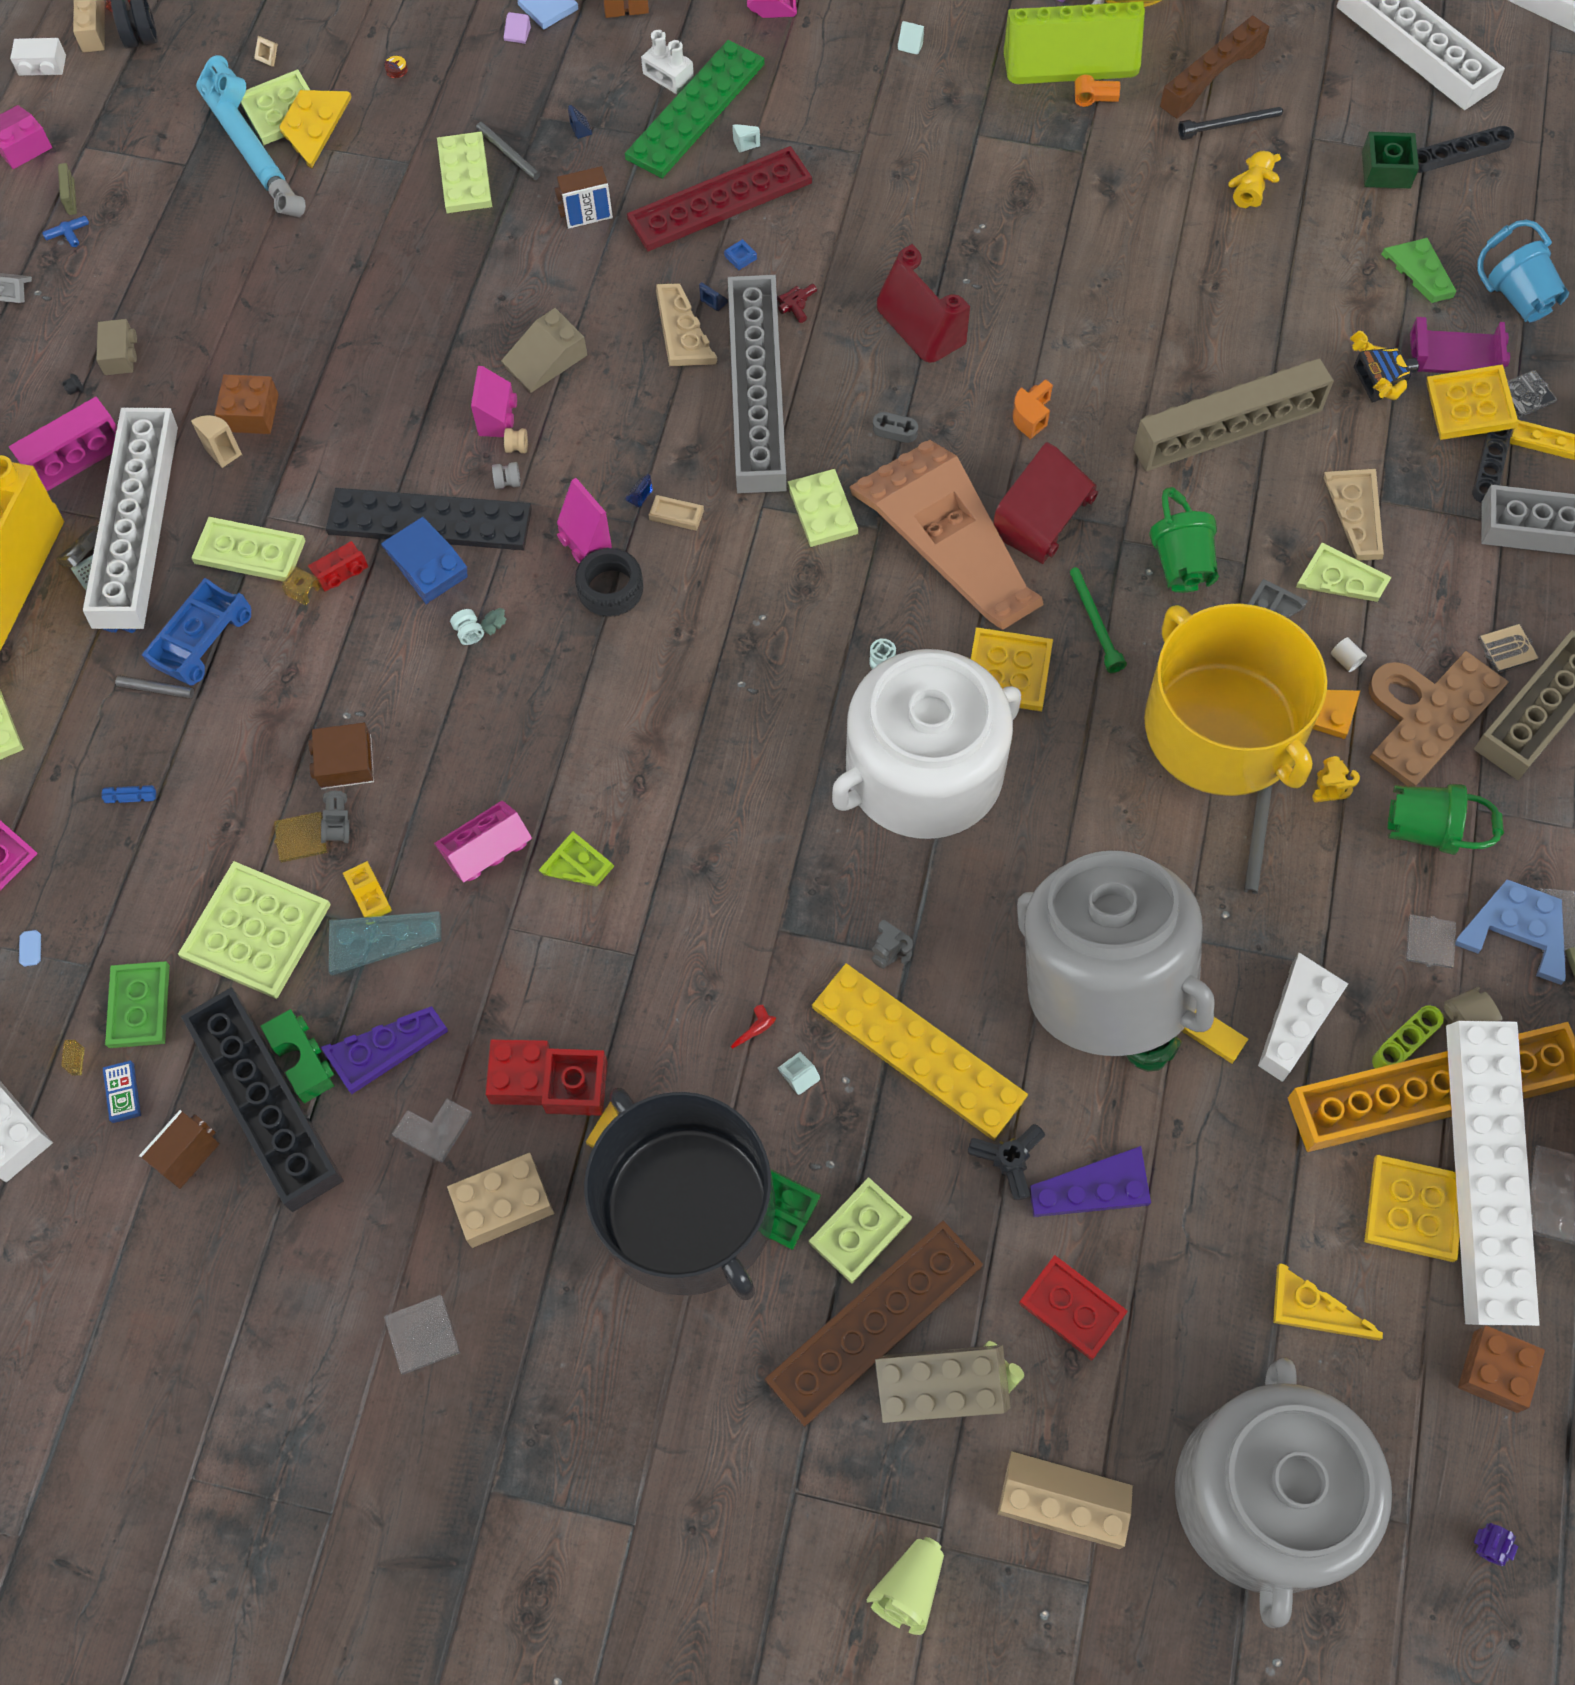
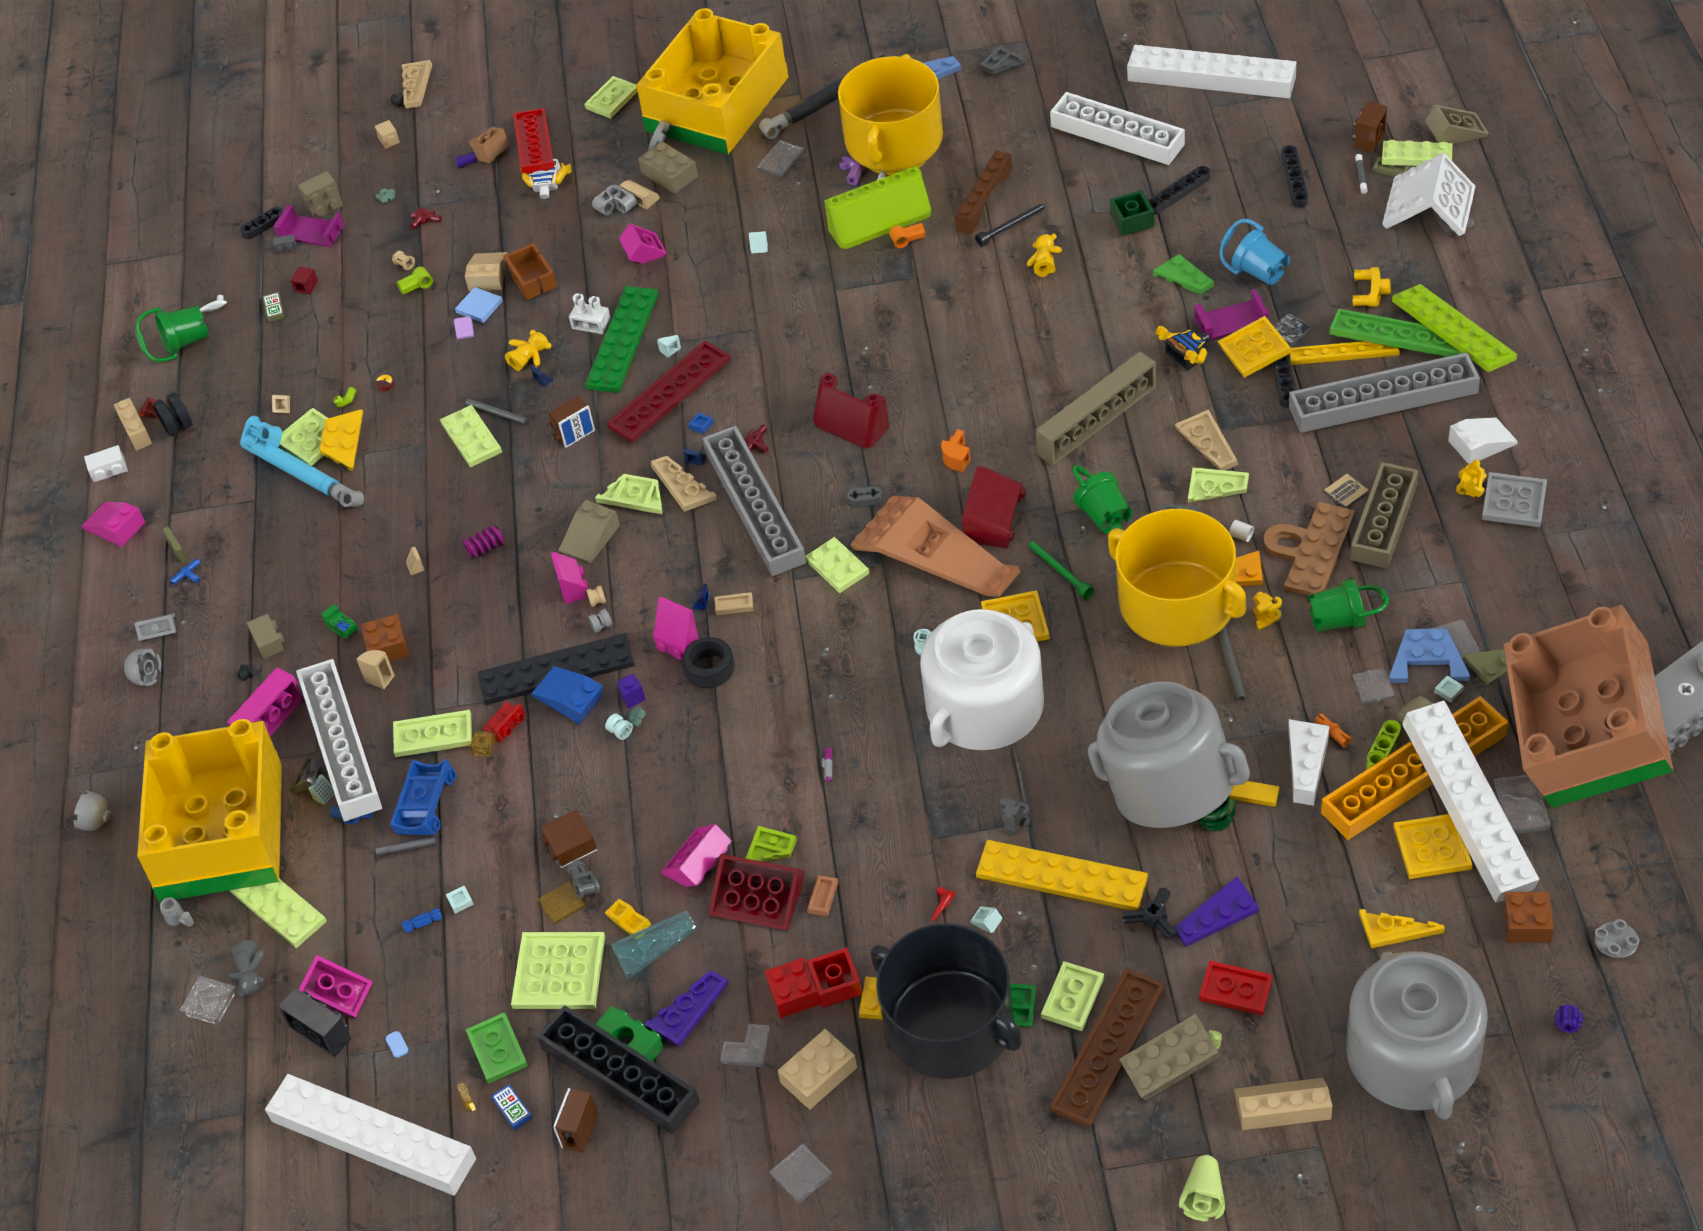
camera: 15 degrees left, 15 degrees down
(182, 785) = (459, 899): none -> light aqua plate
(205, 359) = (339, 622): none -> green leg
(327, 314) = (414, 562): none -> tan slope
(344, 72) = (347, 399): none -> lime arm
(416, 318) = (483, 541): none -> magenta piece
(501, 584) = (630, 690): none -> dark purple brick
(533, 919) = (755, 892): none -> dark red slope
(576, 83) = (525, 350): none -> yellow piece
(613, 956) = (822, 895): none -> nougat tile
(620, 320) = (633, 493): none -> yellowish green wing
(695, 777) = (827, 764): none -> piece
(1353, 990) = (1334, 730): none -> orange pin
(1529, 987) = (1448, 689): none -> light aqua plate

